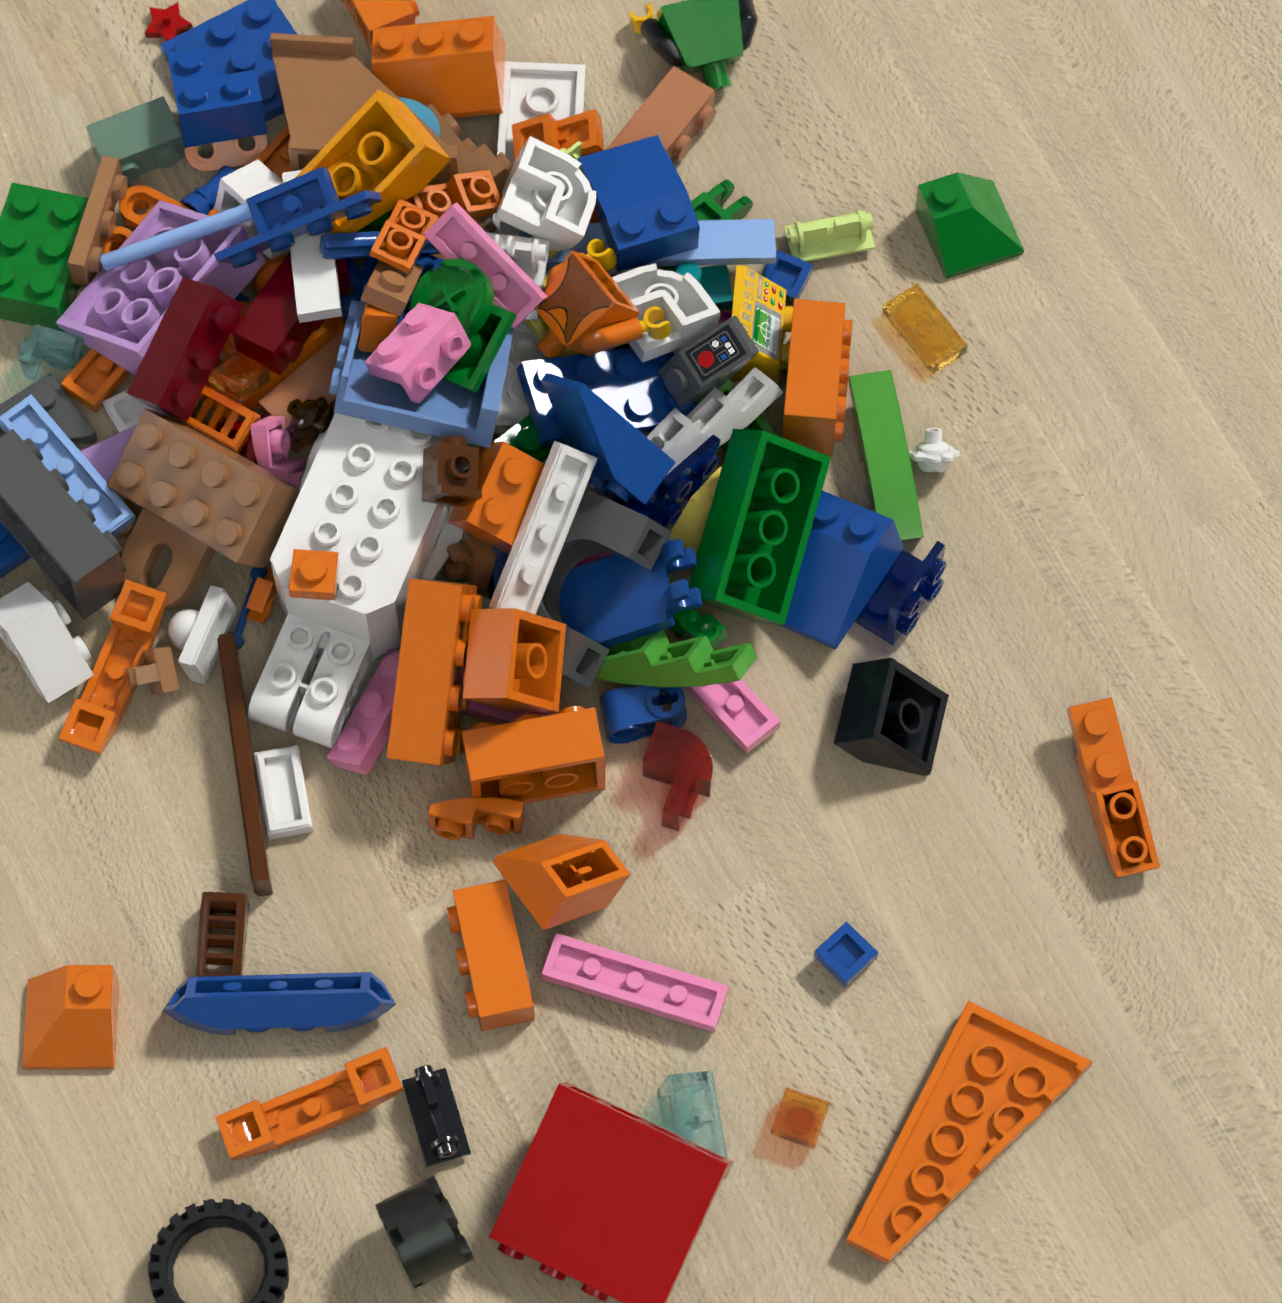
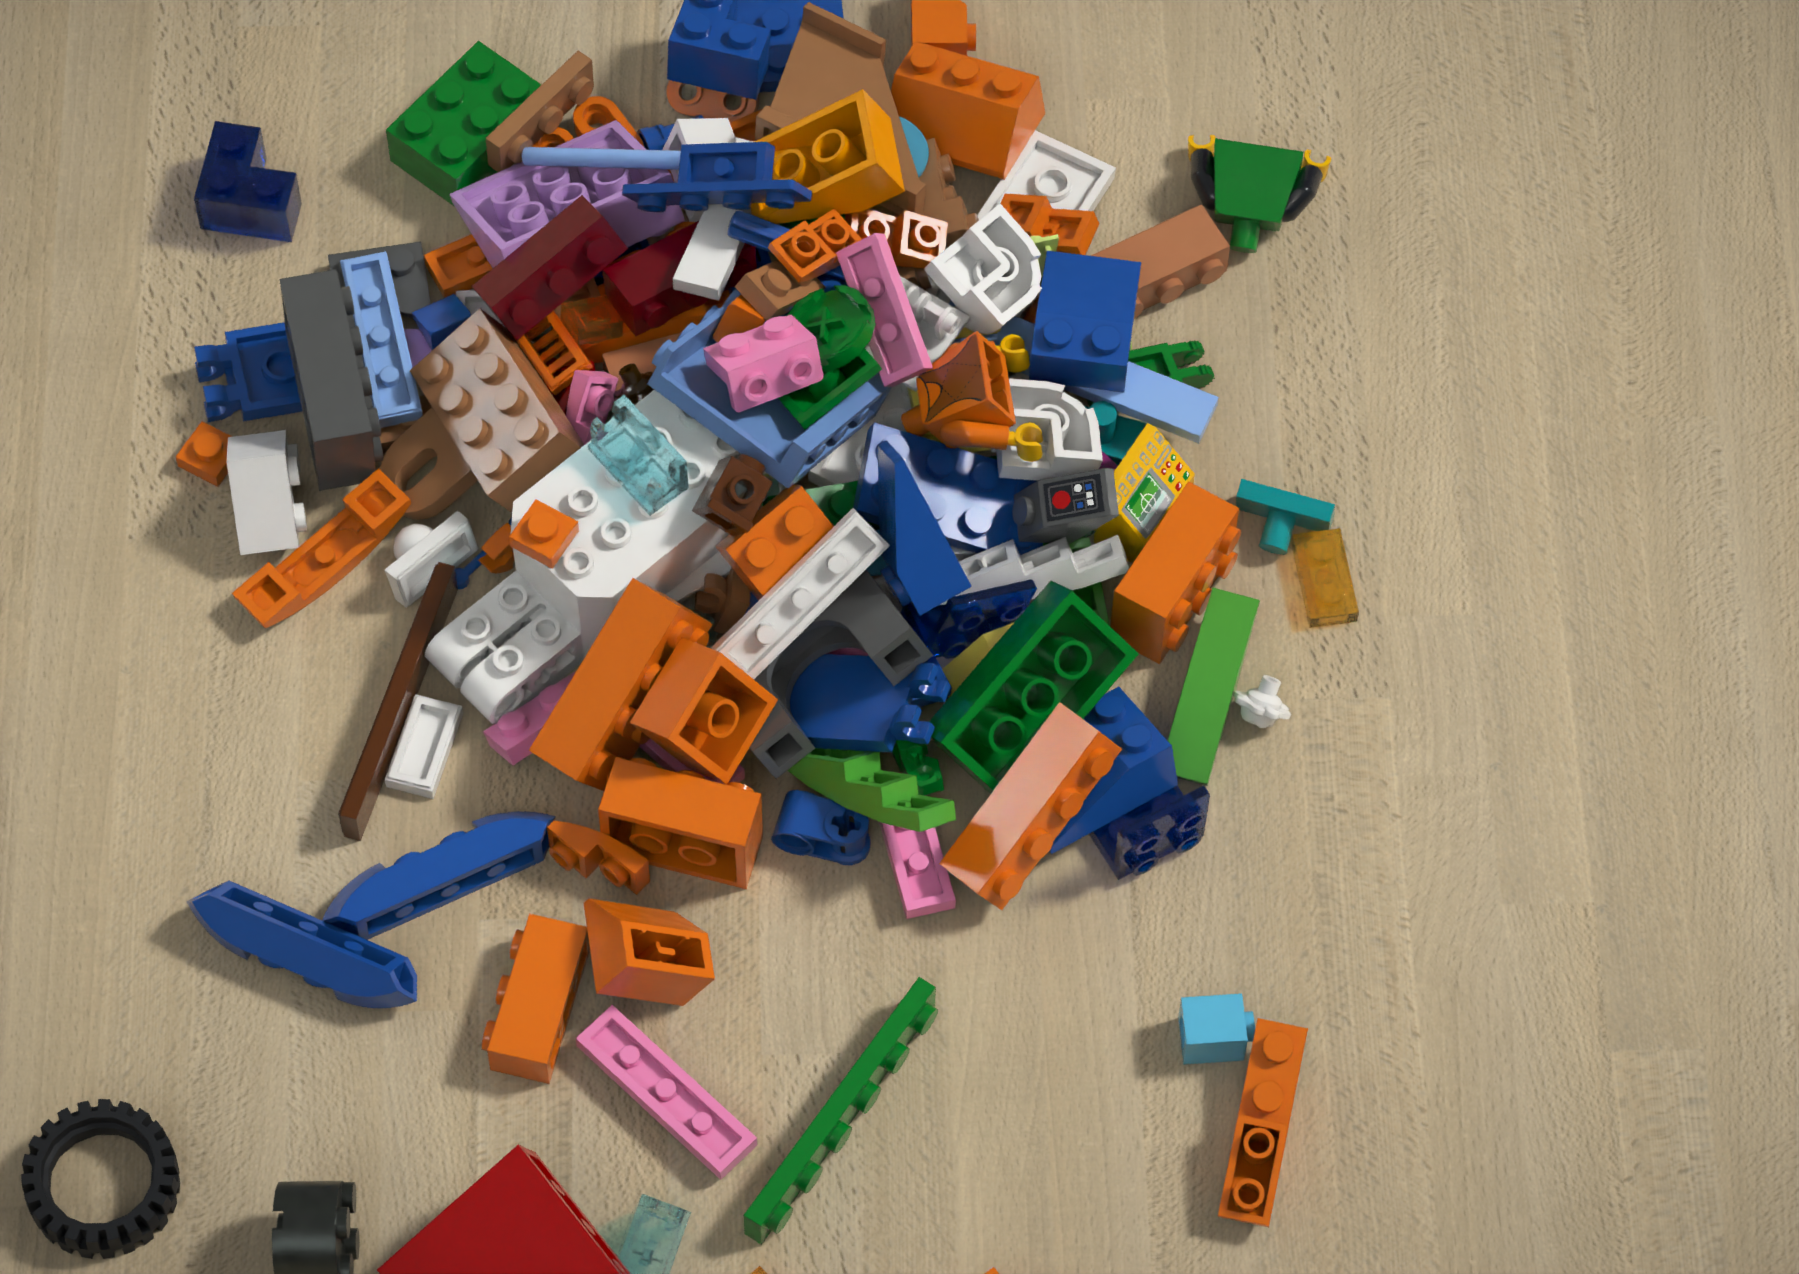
camera: 25 degrees right, 5 degrees down
(53, 346) = (432, 215): clear light blue bracket -> none
(72, 1018) = (98, 870): orange slope -> none
(109, 431) = (440, 319): none -> blue slope
(139, 137) = (627, 53): sand green brick -> none
(157, 670) = (362, 571): medium nougat tile -> none
(222, 903) = (280, 836): reddish brown slope -> none
(312, 1108) = (276, 1065): orange slope -> none
(358, 475) = (639, 456): none -> clear light blue hinge
(370, 874) = (430, 879): none -> blue brick
(435, 1115) = (397, 1129): black hinge -> none
(685, 764) = (833, 901): clear red brick -> none
(782, 951) = (831, 1126): none -> green plate
(790, 274) = (1210, 462): blue plate -> none
(807, 618) = (1030, 806): none -> orange brick
(831, 236) = (1275, 444): yellowish green hinge -> none
(845, 954) = (895, 1163): blue plate -> none
(868, 291) = (1282, 512): none -> teal tile
(891, 717) = (1072, 948): black slope -> none
(966, 223) = (1426, 490): green slope -> none
(1034, 730) = (1214, 1028): none -> medium azure brick

